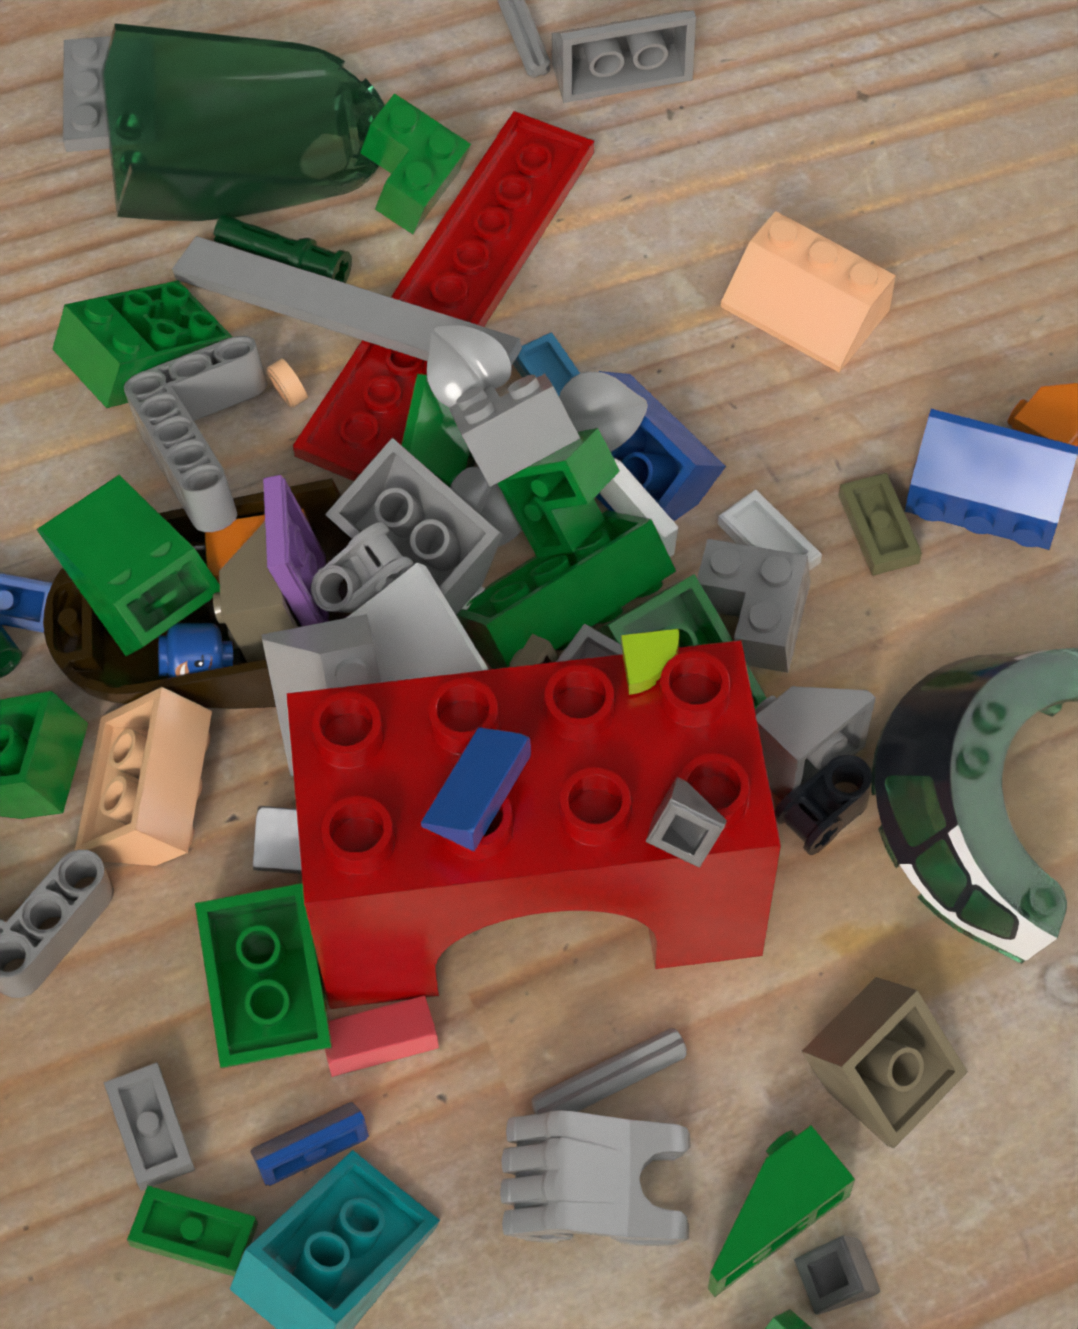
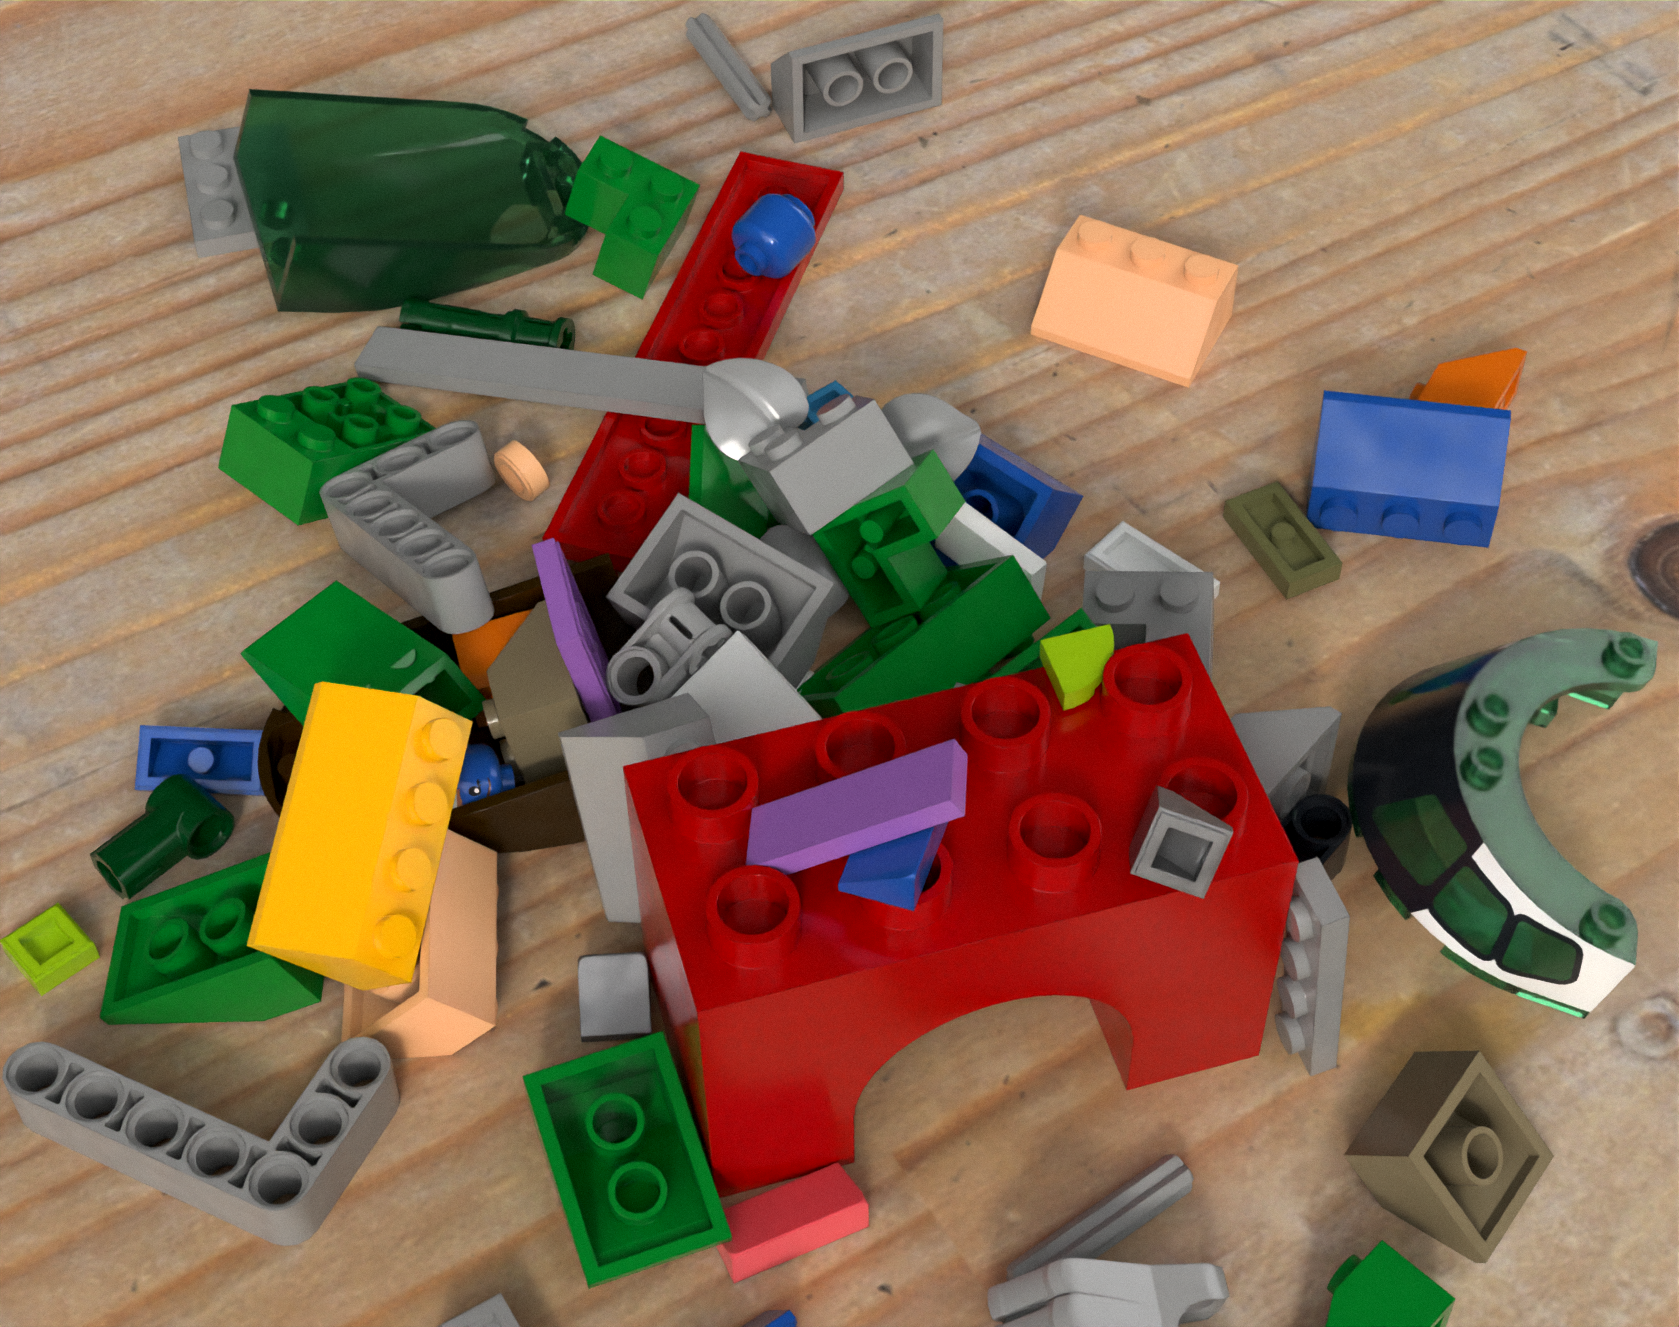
camera: 10 degrees left, 10 degrees down
(103, 693) = (361, 835): none -> yellow slope
(446, 767) = (860, 810): none -> medium lavender tile
(521, 199) = (773, 236): none -> blue head
(798, 908) = (1313, 969): none -> light grey plate

